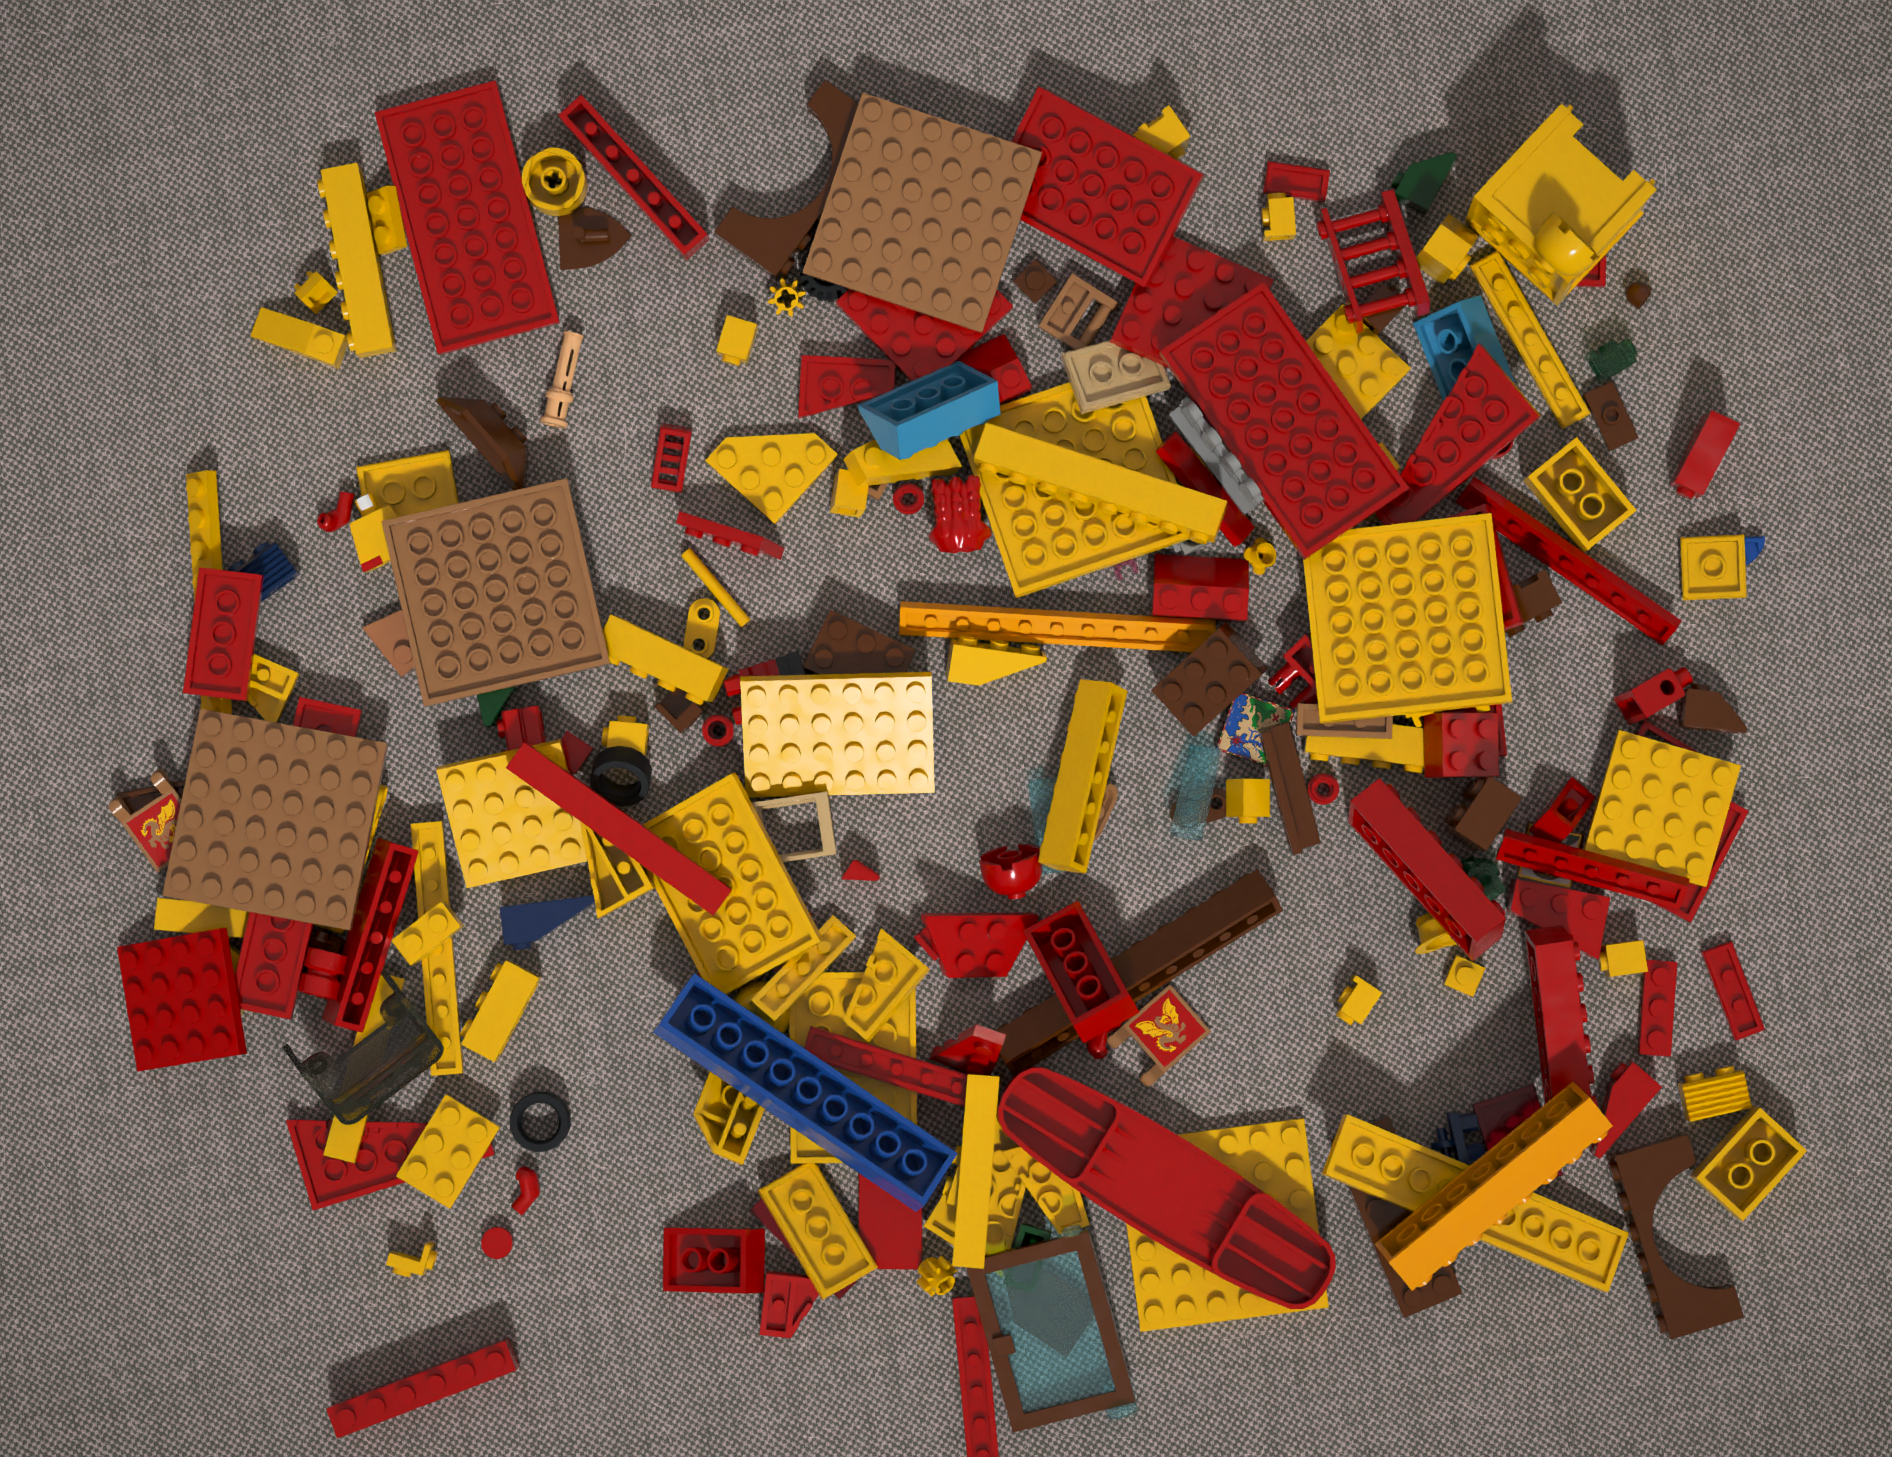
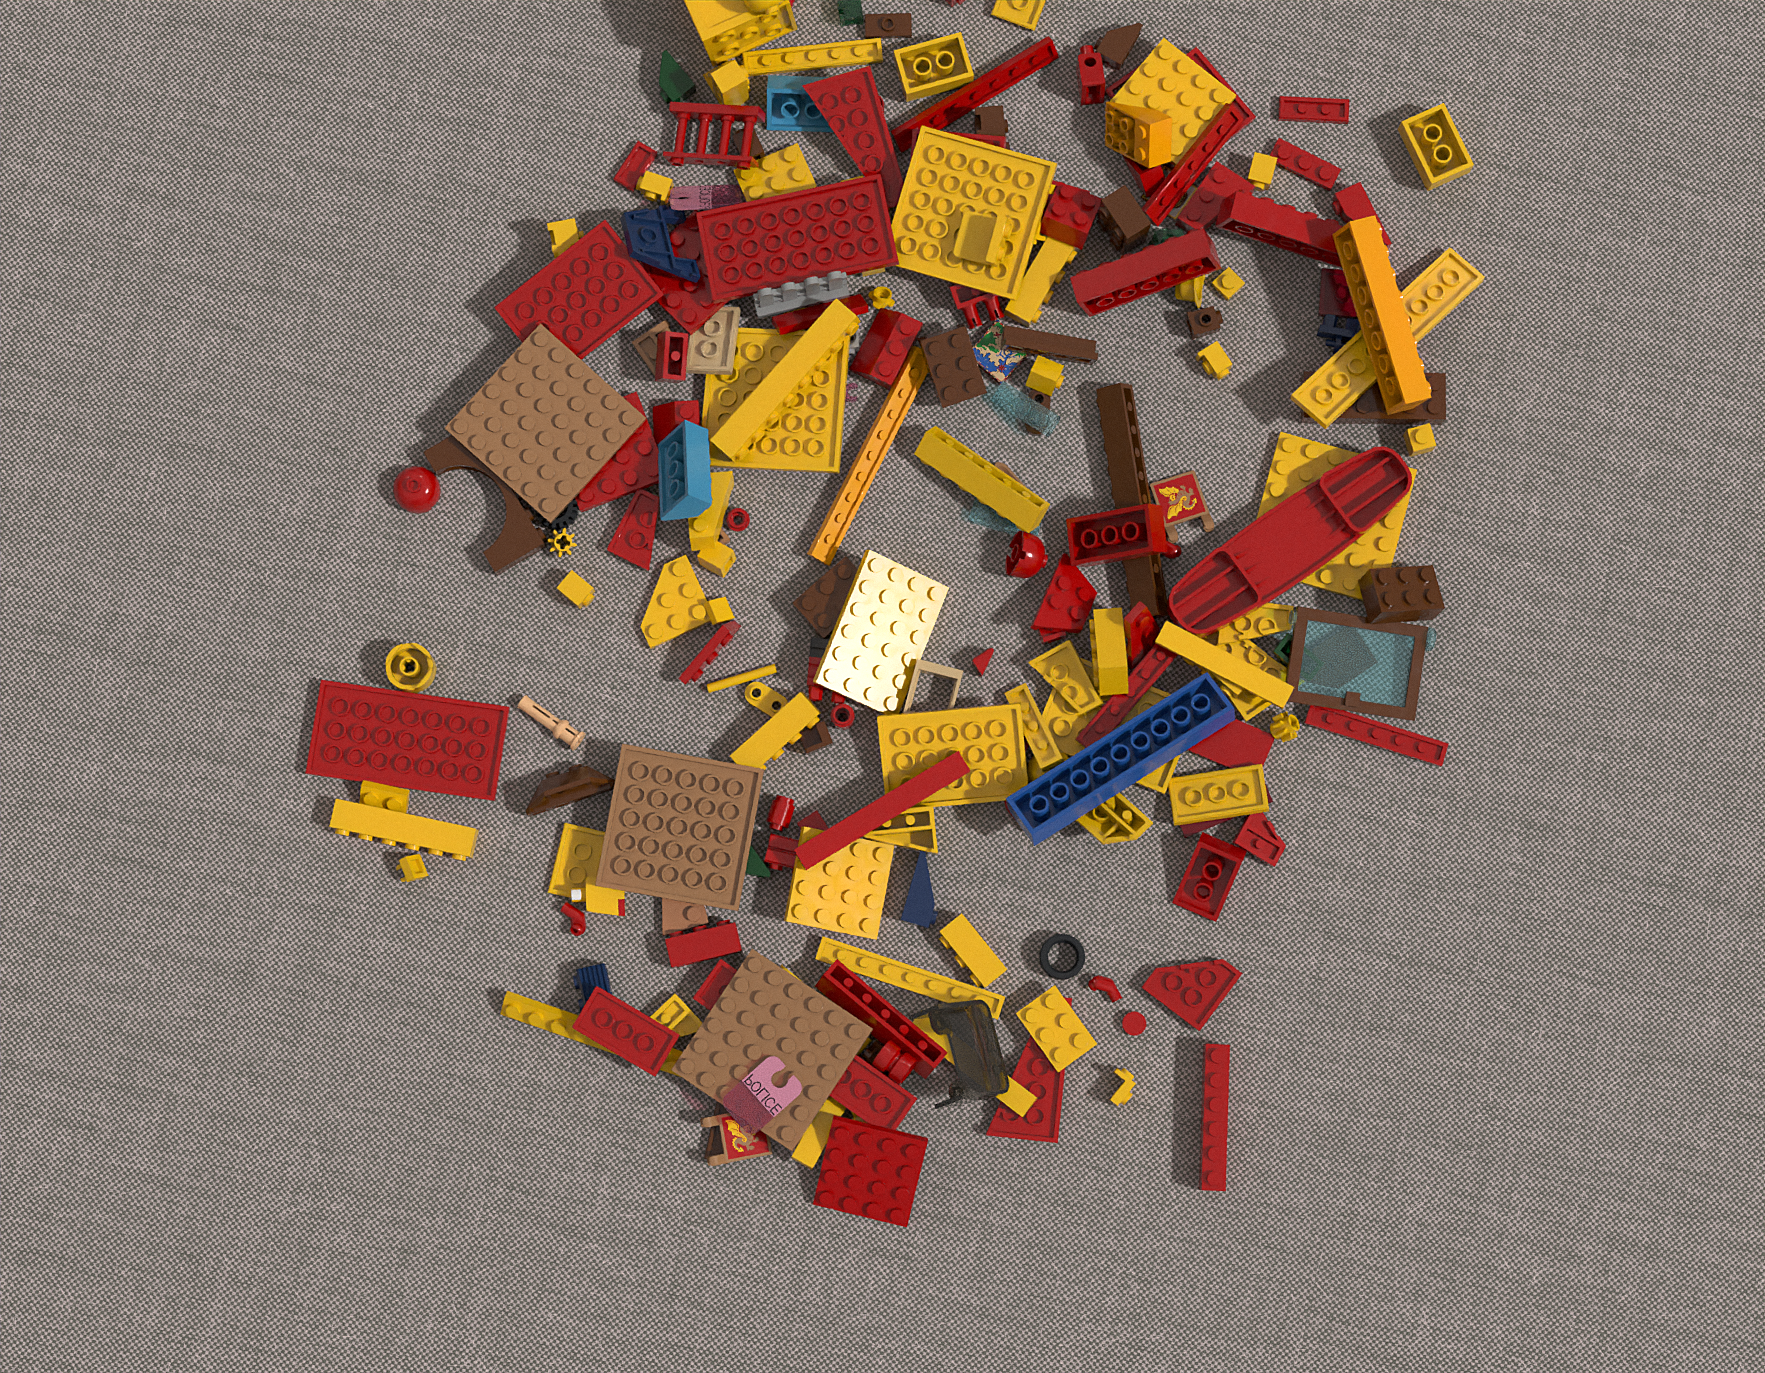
camera: 70 degrees left, 5 degrees down
(204, 829) = (757, 1100): none -> clear pink piece
(300, 337) = (439, 892): yellow slope -> none
(372, 681) = (703, 944): none -> red brick
(427, 933) = (897, 976): yellow brick -> none
(568, 1296) = (1192, 989): none -> red plate
(569, 706) = (780, 813): none -> red brick
(588, 238) = (459, 663): reddish brown shield -> none
(621, 758) = (834, 787): black tyre -> none
(626, 733) = (819, 783): yellow brick -> none
(633, 177) = (432, 612): red brick -> none
(673, 430) = (642, 663): red slope -> none
(778, 92) = (416, 489): none -> red cylinder
(785, 524) = (719, 610): none -> yellow tile
(932, 1022) = (1109, 651): none -> yellow brick
(958, 515) = (764, 488): red piece -> none
(983, 662) = (874, 515): yellow slope -> none
(1034, 282) = (625, 371): reddish brown plate -> none
(1070, 330) = (671, 357): none -> red brick
(1159, 1352) = (1401, 594): none -> reddish brown brick
(1203, 240) = (650, 241): none -> dark blue wing
(1292, 285) = (705, 197): none -> clear pink piece
(1309, 725) = (1012, 309): medium nougat plate -> none
(1332, 785) = (1059, 316): red plate -> none
(1366, 1295) = (1419, 440): none -> yellow brick
(1378, 649) = (982, 238): none -> yellow bracket
(1392, 958) = (1198, 328): none -> reddish brown brick
(1601, 787) = (1139, 133): none -> light orange slope
(1642, 1177) = (1417, 223): reddish brown arch -> none
(1714, 1094) = (1379, 150): yellow brick -> none

